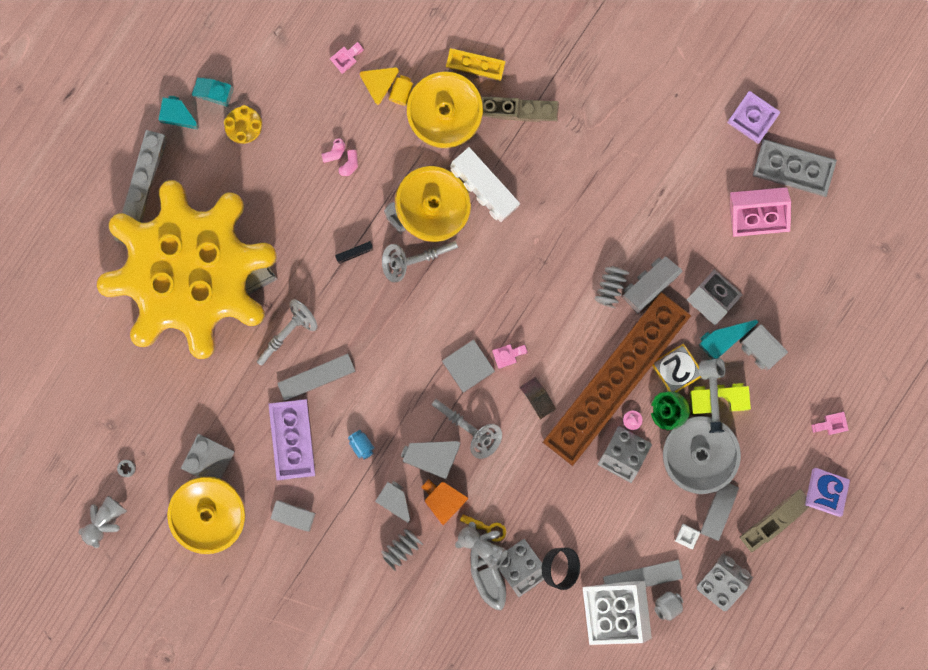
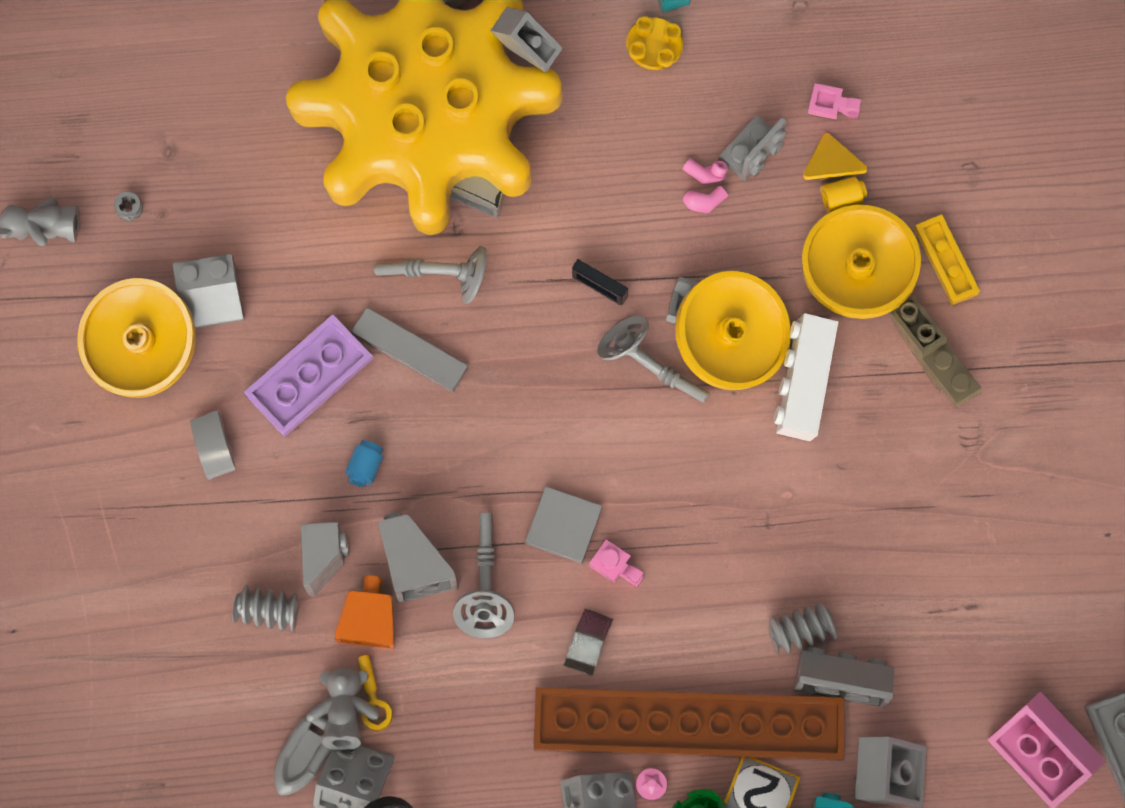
camera: 50 degrees right, 10 degrees down
(202, 196) = (526, 38): none -> light grey slope
(338, 116) = (752, 146): none -> light grey bracket

